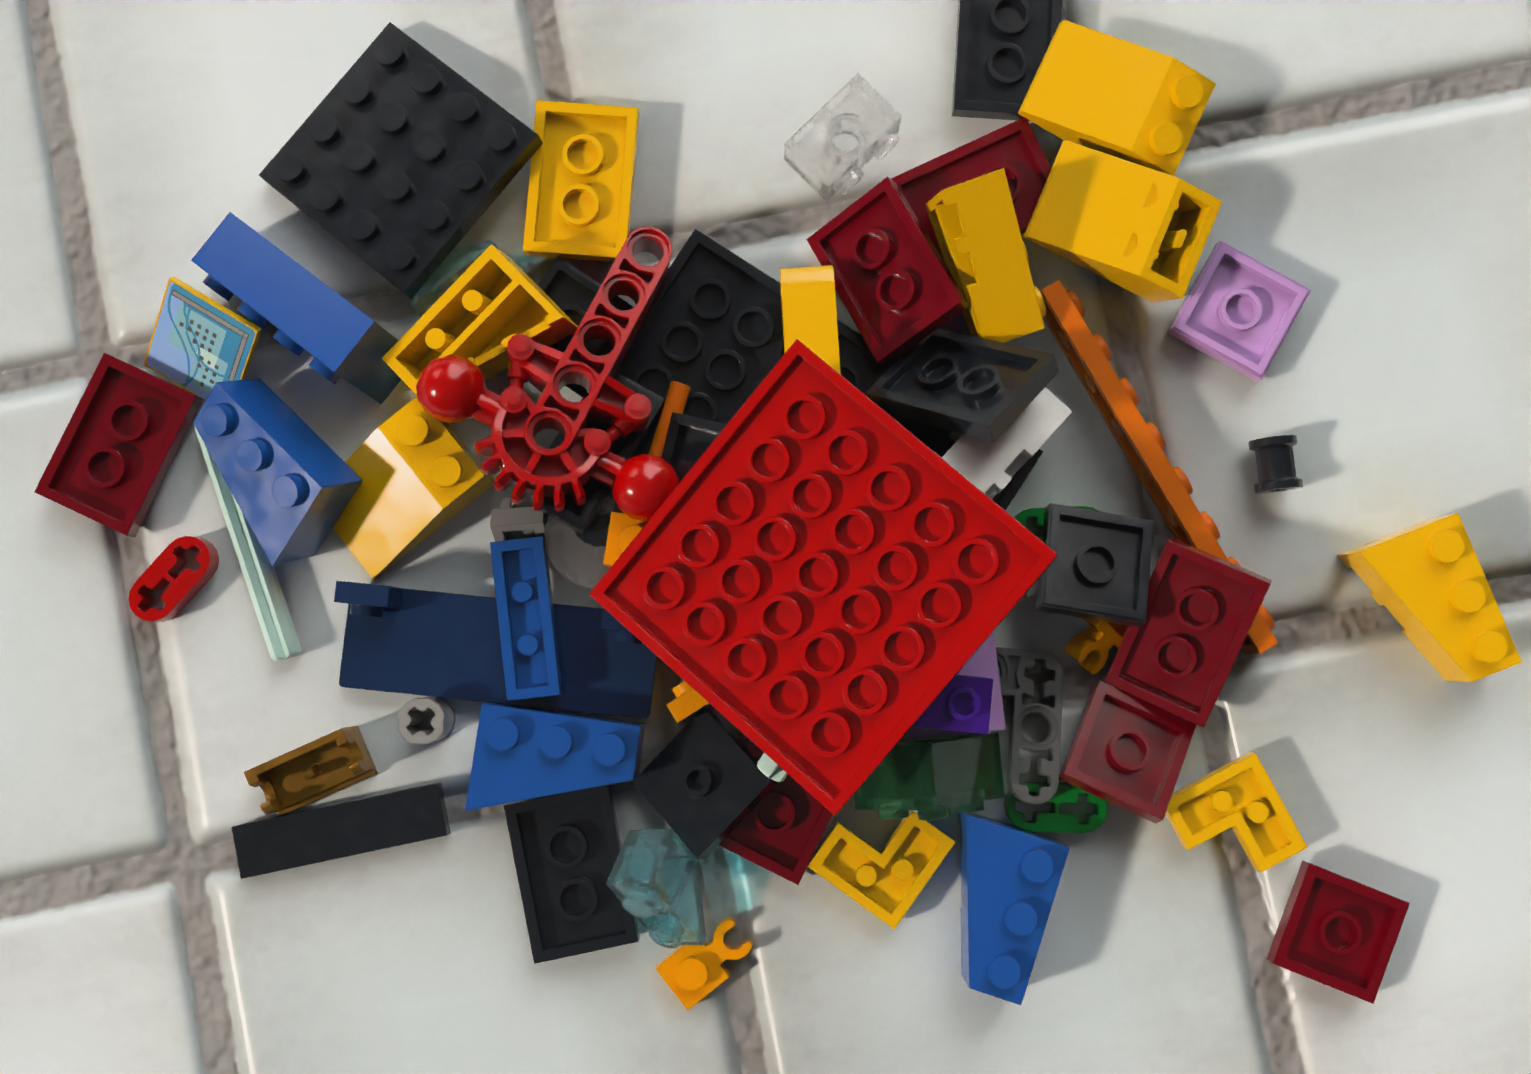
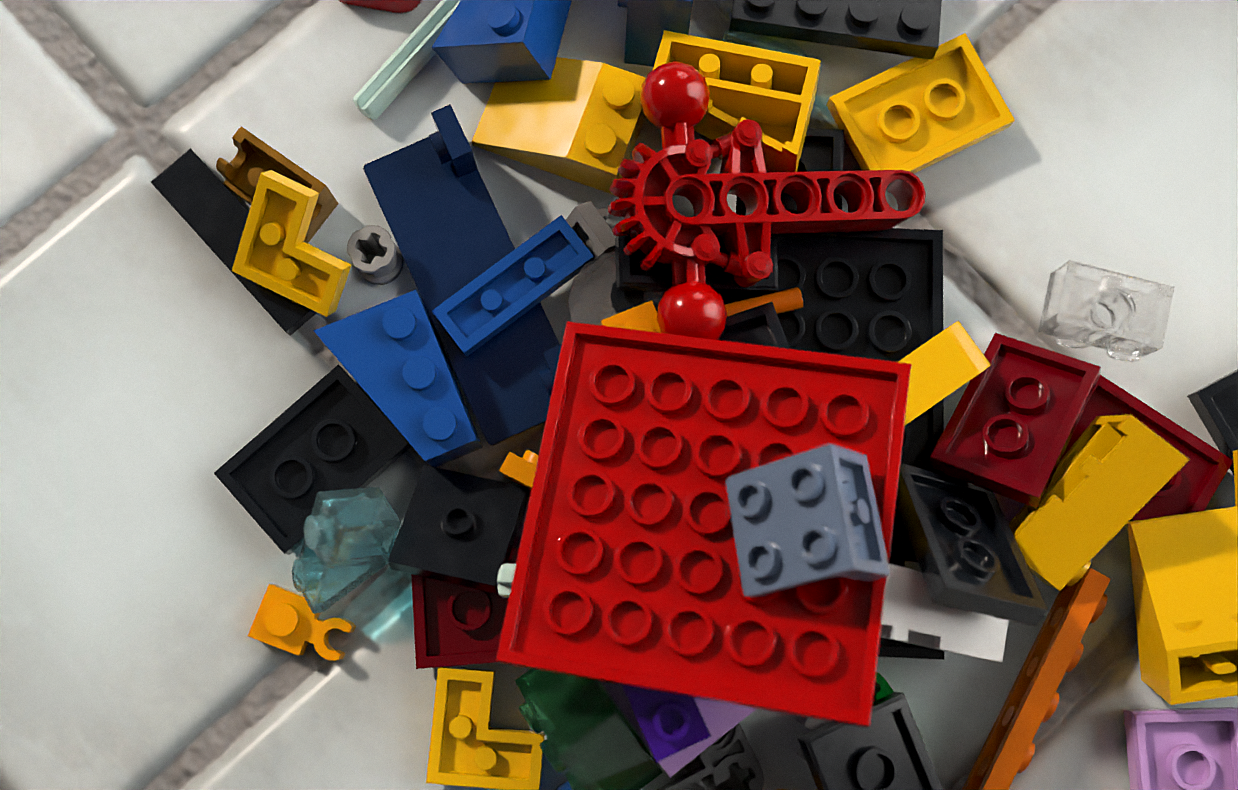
camera: 50 degrees right, 5 degrees down
(373, 803) = (275, 250): none -> yellow plate
(873, 504) = (806, 521): none -> sand blue bracket

